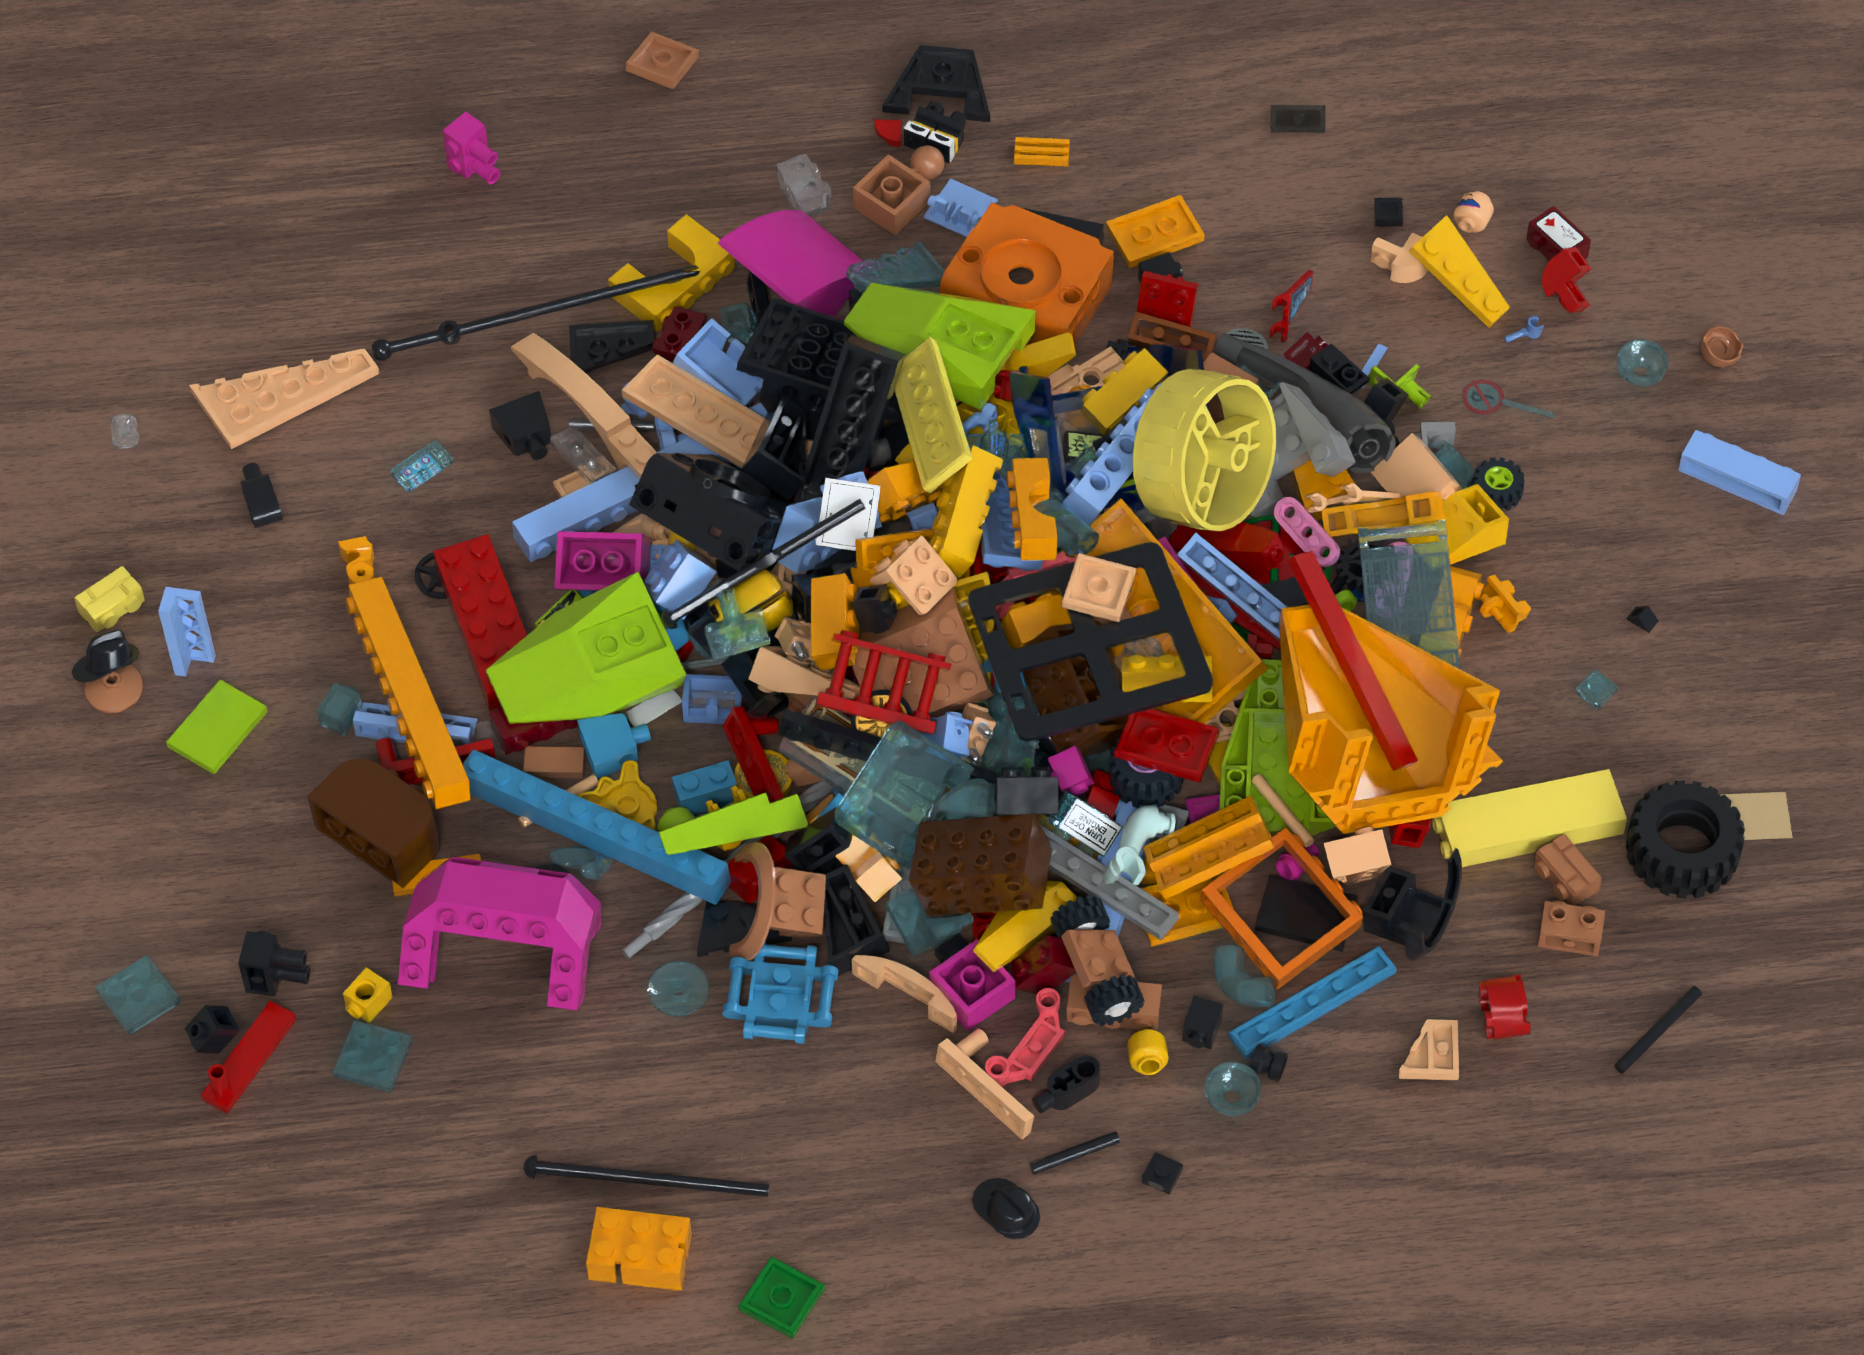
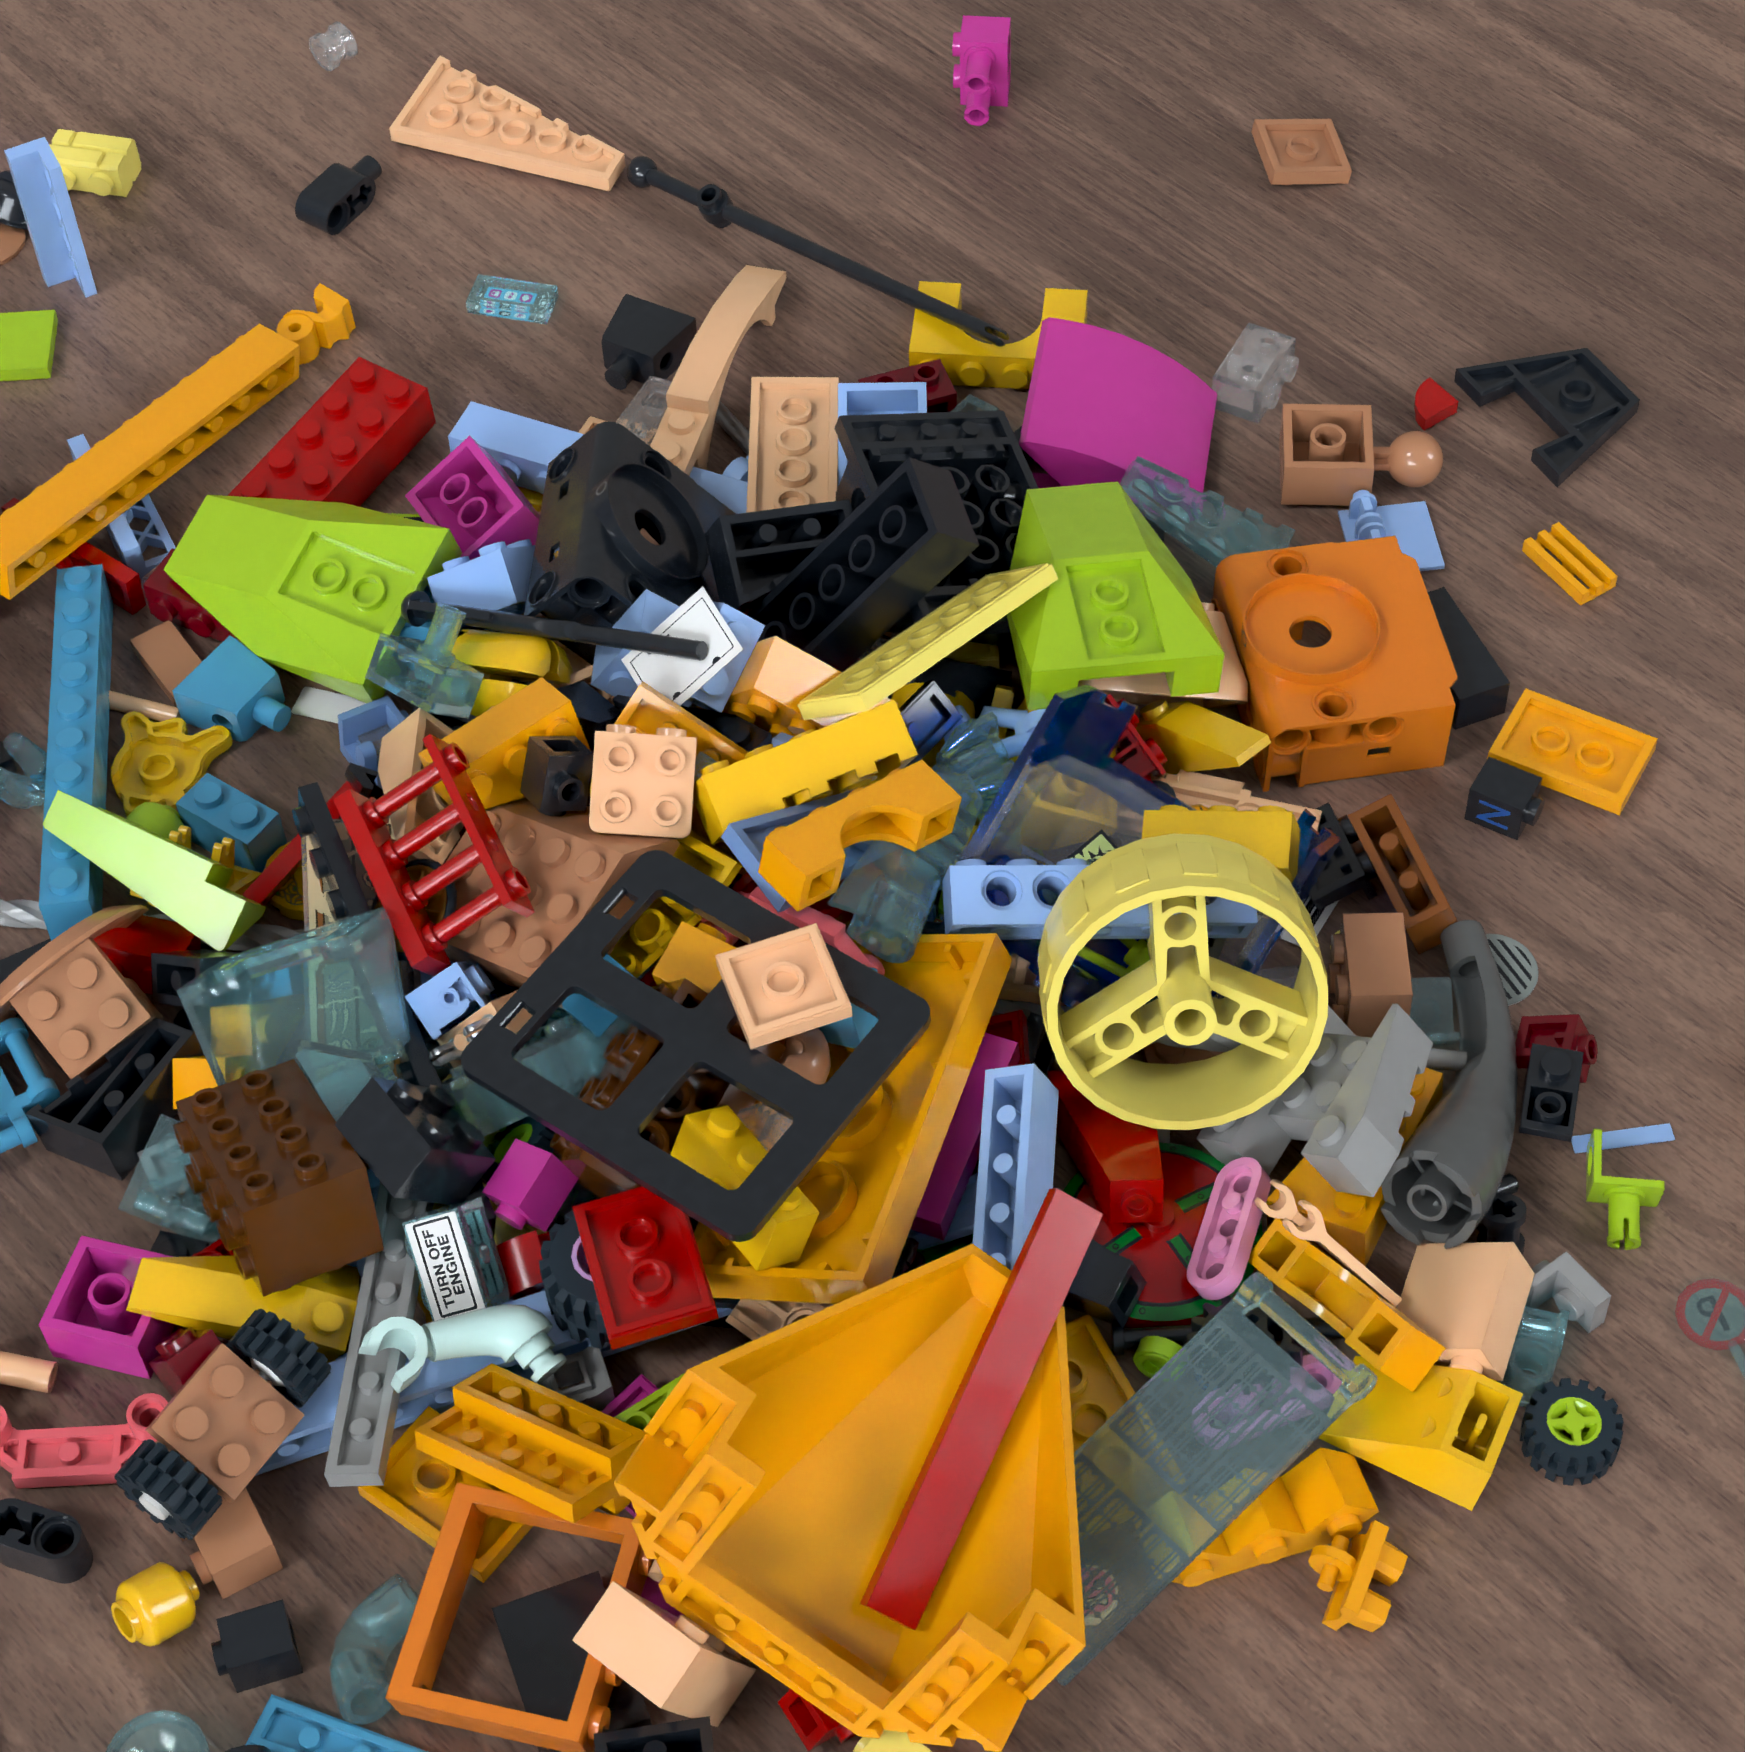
camera: 55 degrees right, 5 degrees down
(338, 708) = (88, 416): clear light blue brick -> none
(608, 343) = (834, 342): black wing -> none
(876, 970) = (75, 1195): light nougat slope -> none
(936, 130) = (1475, 443): black hips -> none
(1167, 298) = (1457, 826): red plate -> none
(1292, 301) = (1612, 967): red flag -> none
(1386, 399) = (1557, 1184): black brick -> none

